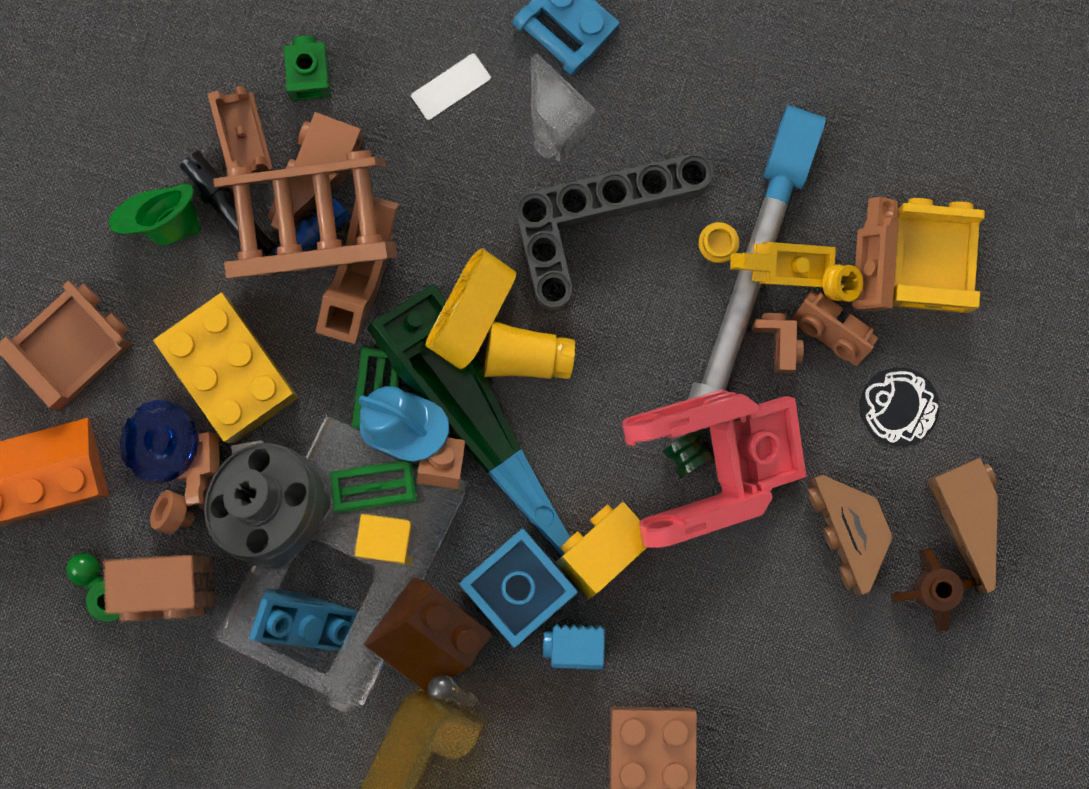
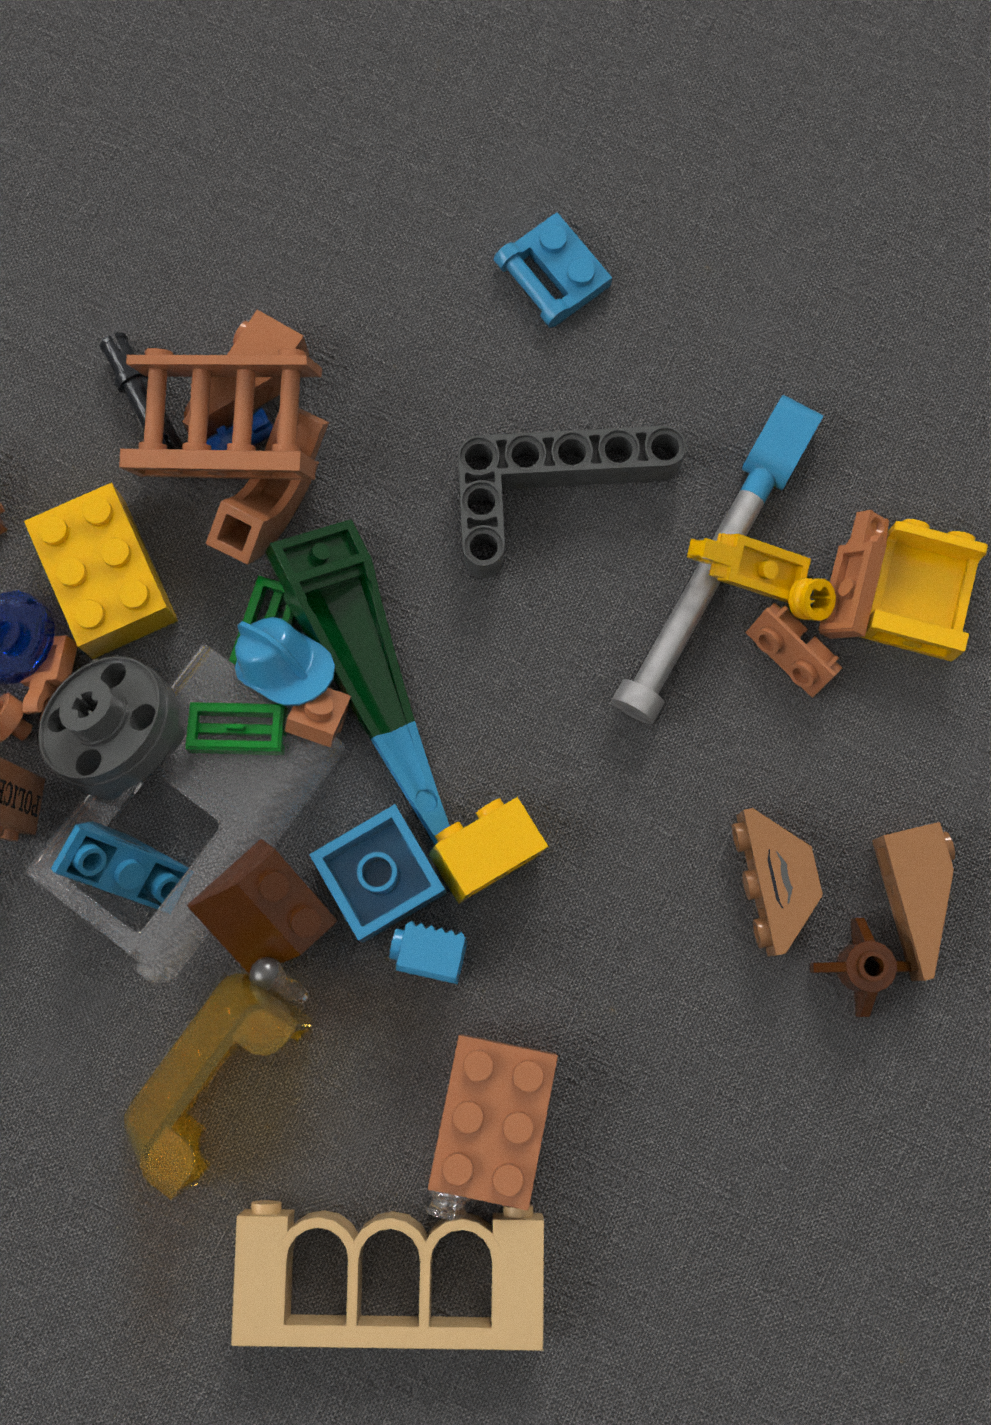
camera: 15 degrees right, 5 degrees down
(159, 215) = (66, 395): green piece -> none
(240, 130) = (172, 313): nougat hinge -> none
(310, 82) = (260, 269): green brick -> none
(384, 539) = (232, 788): yellow panel -> none
(450, 86) = (414, 316): white sticker -> none
(471, 309) = (386, 552): yellow beam -> none
(527, 353) = (440, 613): yellow plant -> none
(558, 112) = (525, 355): clear slope -> none
(688, 453) = (603, 758): dark green wheel -> none
(718, 242) = (677, 530): yellow plate -> none
(752, 450) = (678, 769): coral plate -> none
(787, 348) = (737, 661): nougat bracket -> none
(899, 406) = (854, 751): black sticker -> none

